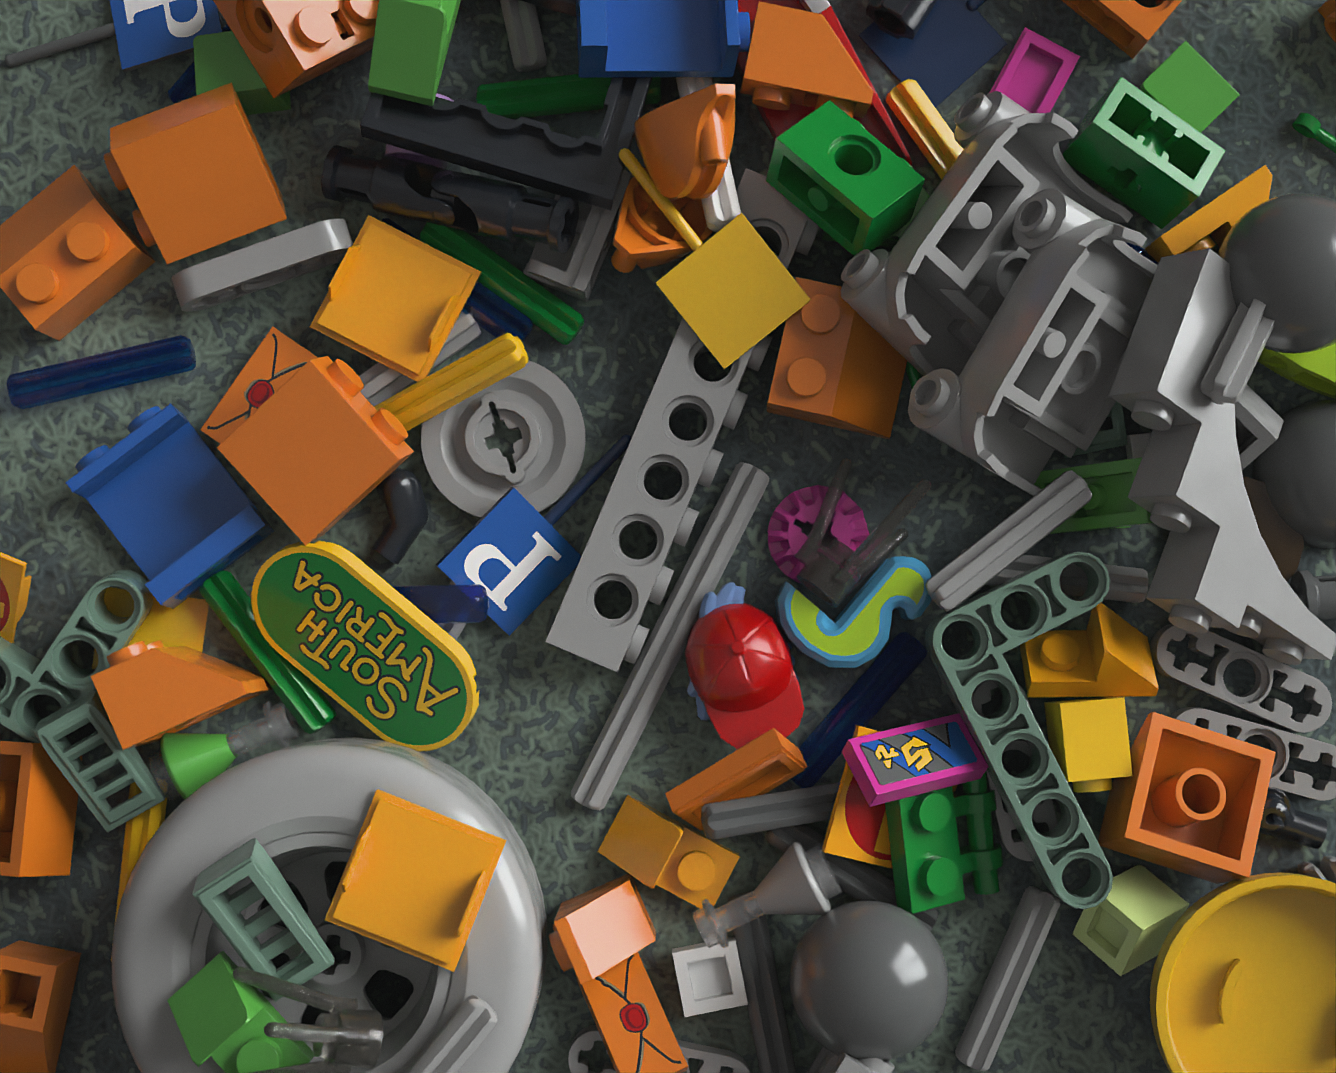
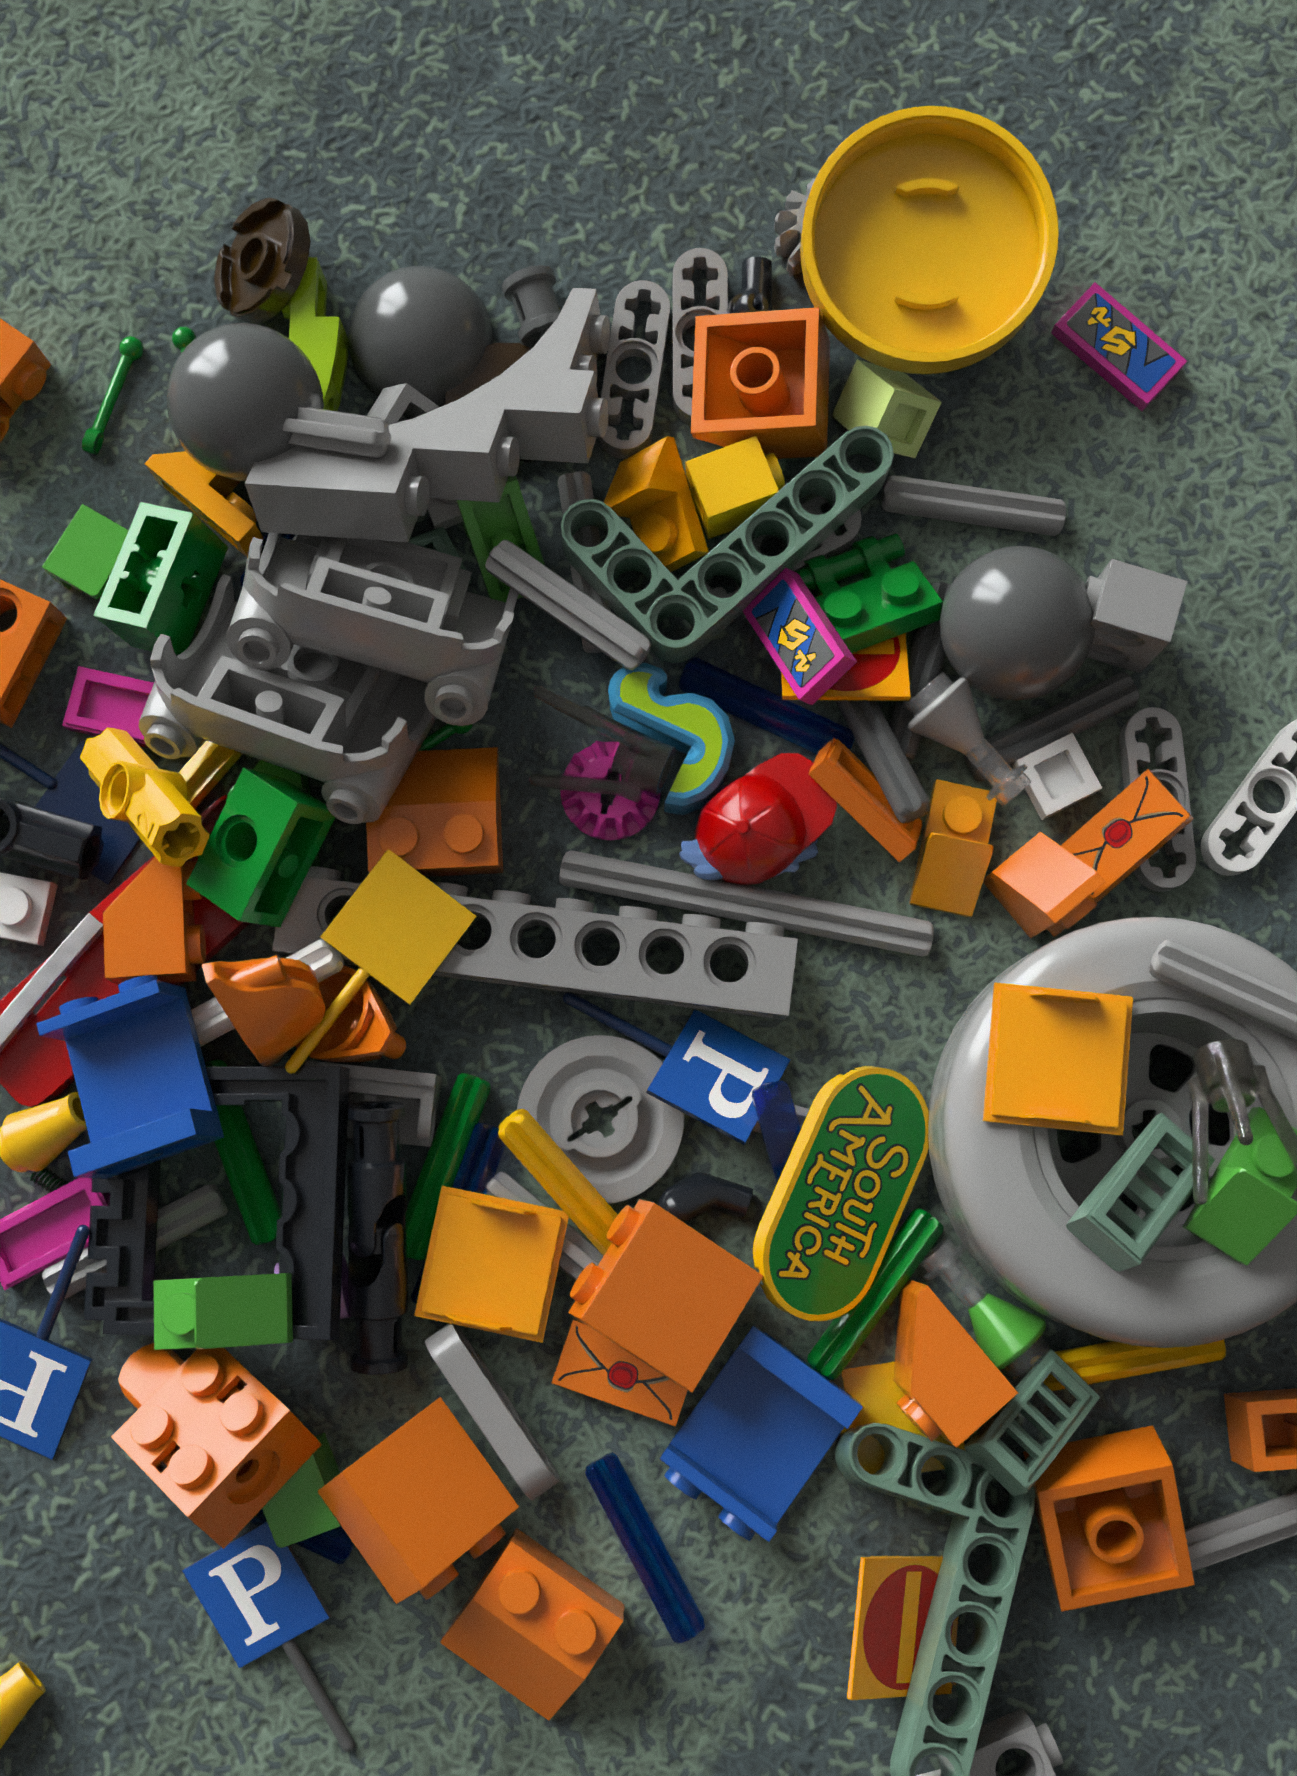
camera: 105 degrees left, 5 degrees down
(925, 81) = (144, 797): none -> yellow piece

